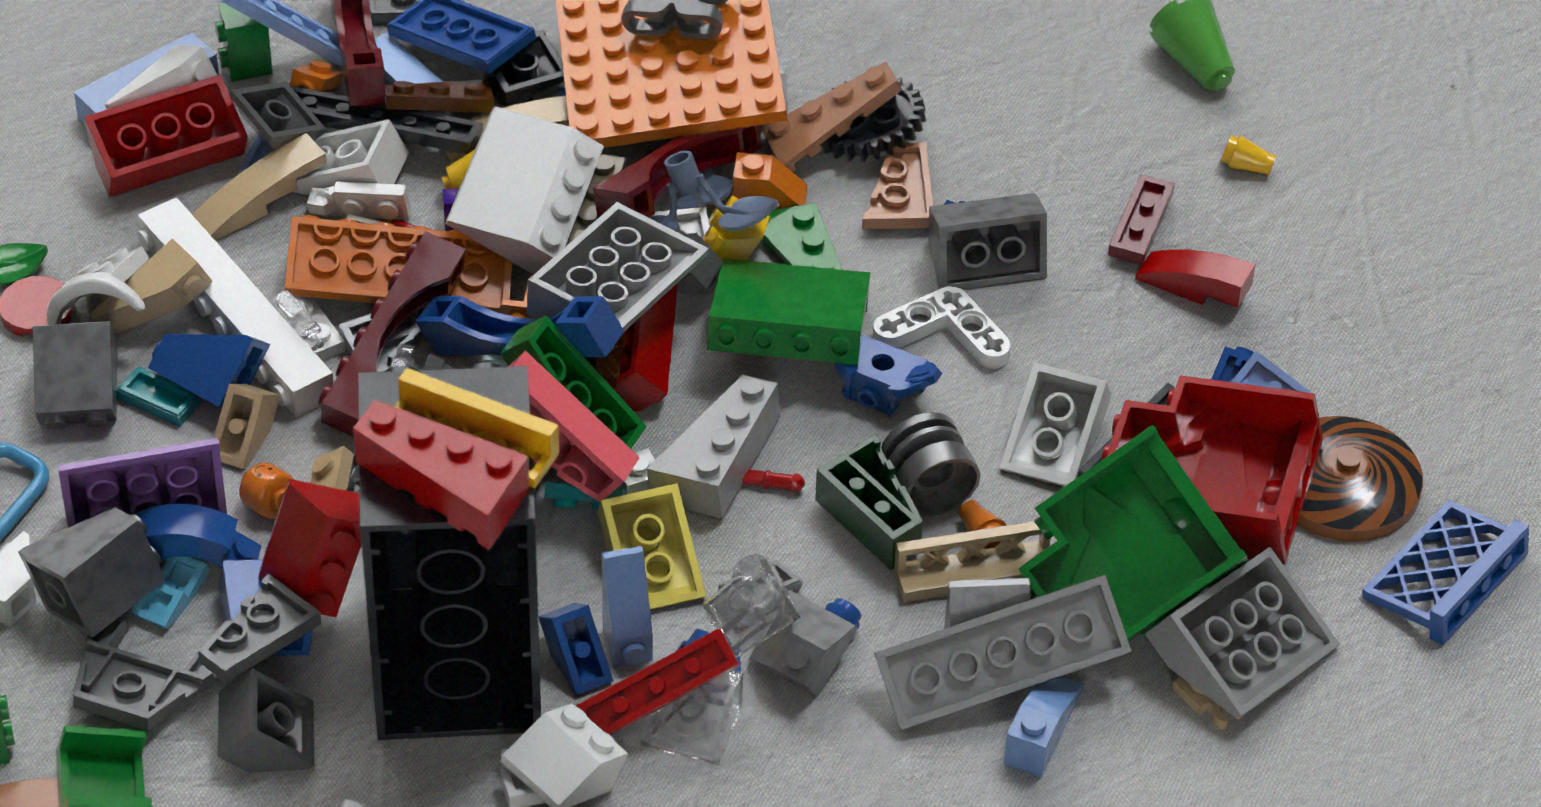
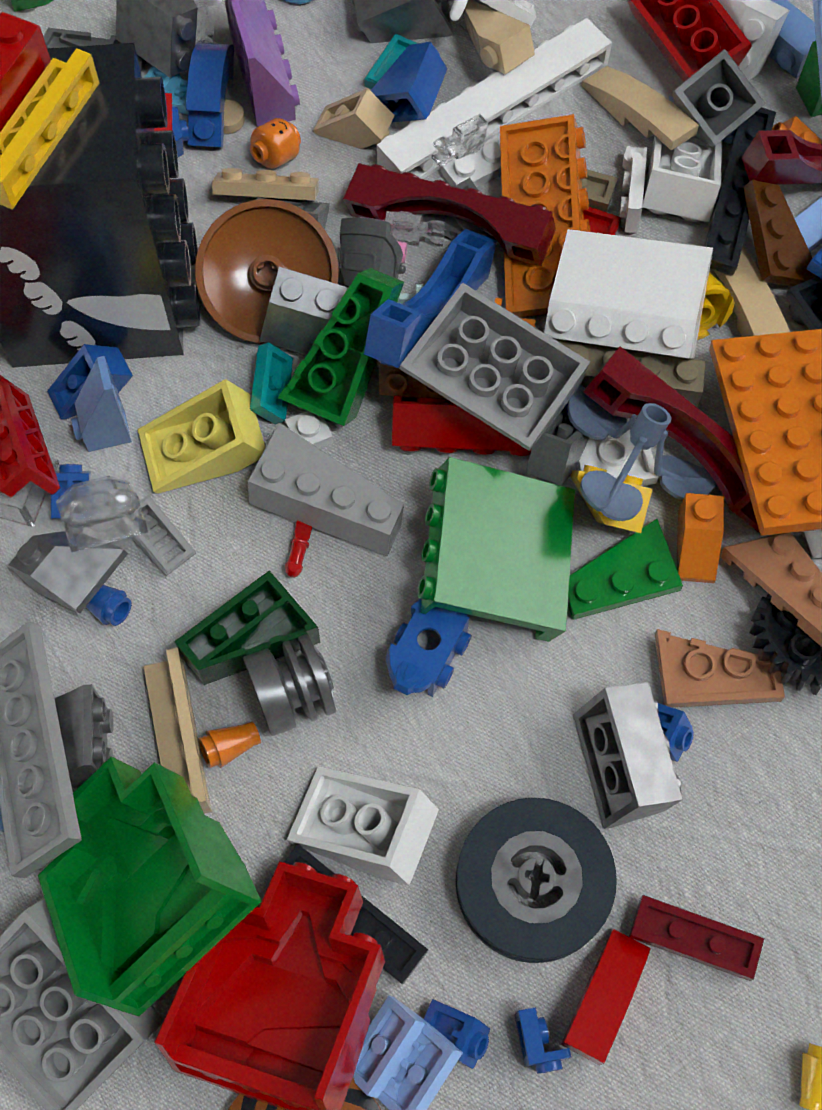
camera: 90 degrees right, 20 degrees up
(588, 450) = (280, 324): coral wedge -> none
(943, 314) = (528, 710): white beam -> none
(1096, 342) = (583, 889): none -> black wheel
(1237, 322) = (532, 1037): none -> blue bracket

